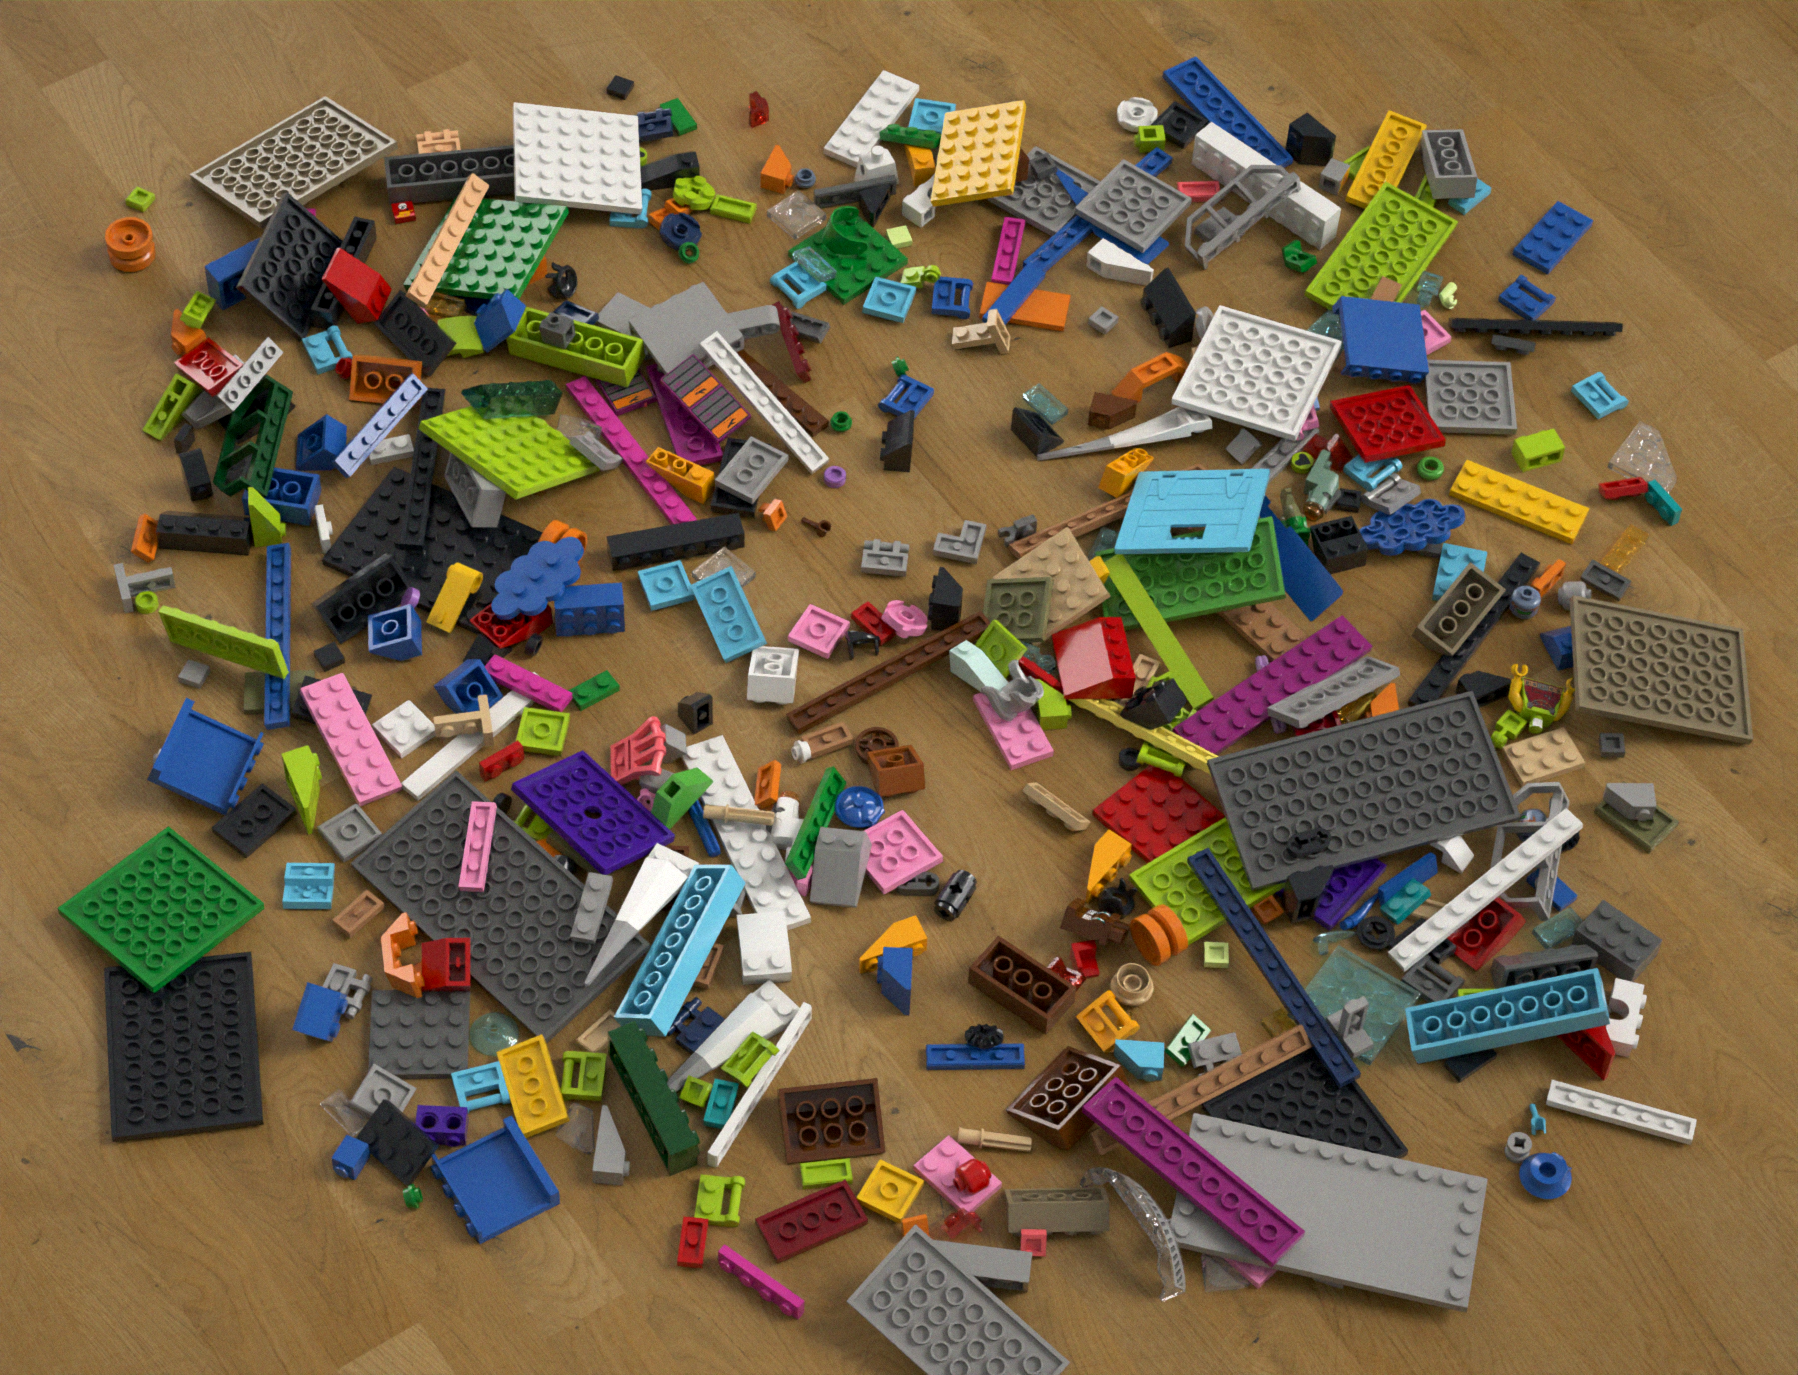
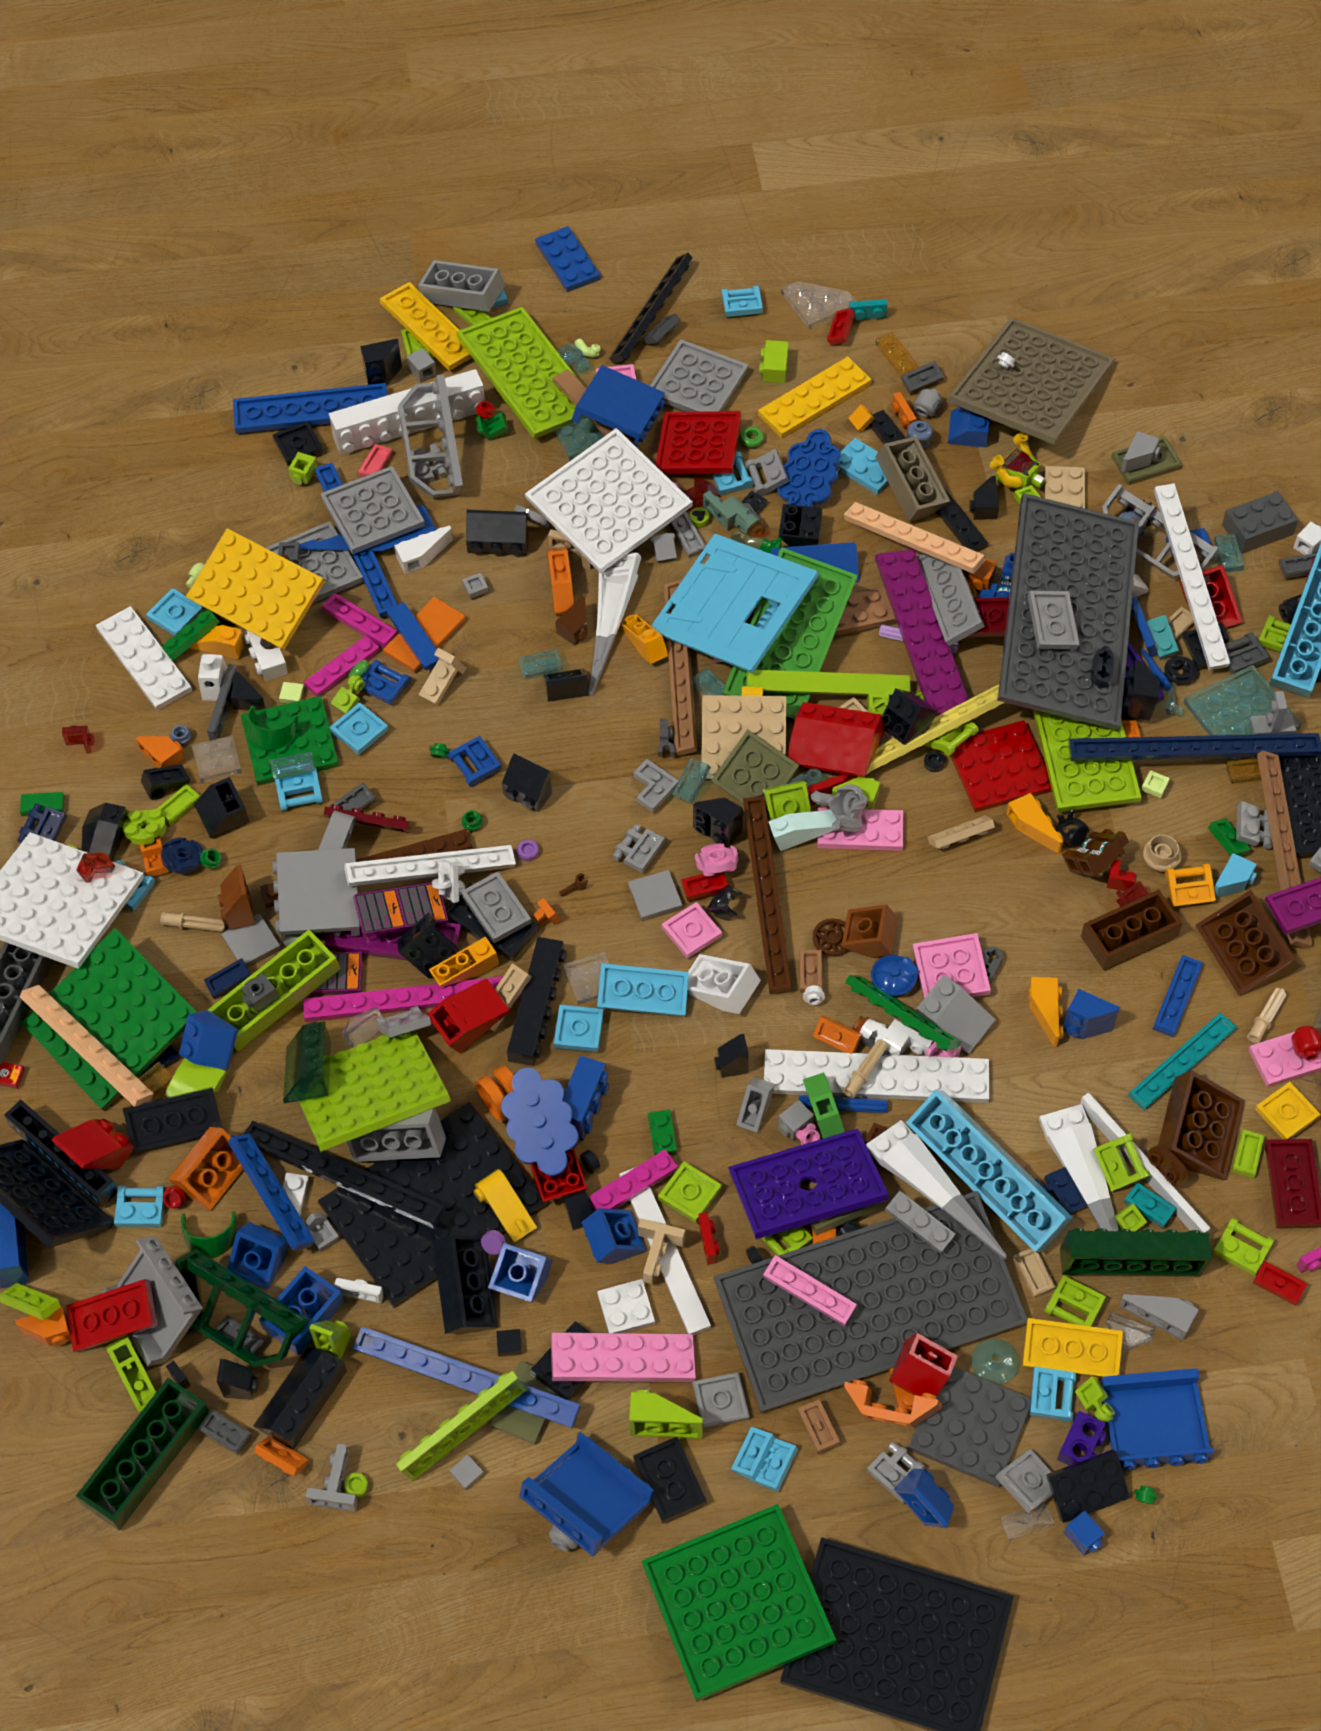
camera: 60 degrees left, 5 degrees up
(102, 443) = (143, 1454): none -> dark green brick
(150, 492) = (224, 1432): none -> dark grey plate
(313, 412) = (214, 1245): none -> green piece
(367, 481) = (321, 1231): none -> light grey tile
(491, 1118) = (1092, 1396): none -> lime plate
(562, 285) = (183, 975): black piece -> none
(616, 261) = (183, 920): none -> tan axle
(623, 167) = (94, 863): none -> clear red bracket
(626, 492) = (468, 1014): none -> red slope
(626, 755) = (757, 1135): coral plate -> none
(652, 286) = (236, 900): none -> dark orange slope
(662, 513) = (511, 987): none -> tan plate
(676, 432) = (425, 945): none -> black bracket
(744, 237) = (221, 808): none -> black slope
(747, 182) = (159, 780): none -> black plate
(760, 1103) = (1168, 1164): none -> reddish brown plate
(762, 416) = (448, 881): none -> white hips
(764, 947) = (1009, 1105): white slope -> none
(842, 590) = (655, 895): none -> light grey tile
(902, 1084) = (1182, 1061): none -> teal tile
(951, 261) = (340, 666): none -> dark pink plate
(951, 271) = (359, 669): none -> bright green piece
(955, 895) = (1017, 941): black piece -> none
(982, 567) = (691, 780): none -> clear light blue plate
(984, 1036) = (1171, 983): black gear -> none
(1136, 113) = (267, 467): white plate -> none
(1158, 934) = (1129, 811): orange wheel -> none
(1309, 242) = (485, 410): none -> red plate
(1330, 772) = (1053, 620): none -> light grey plate
(1383, 639) = (914, 537): none -> light nougat plate
(1515, 547) = (861, 418): none -> light orange tile
(1523, 303) = (620, 307): blue plate -> none
(1541, 965) = (1264, 576): dark grey slope -> none
(1612, 745) = (1076, 444): dark grey plate -> none
(1660, 632) = (1005, 360): none -> white plate

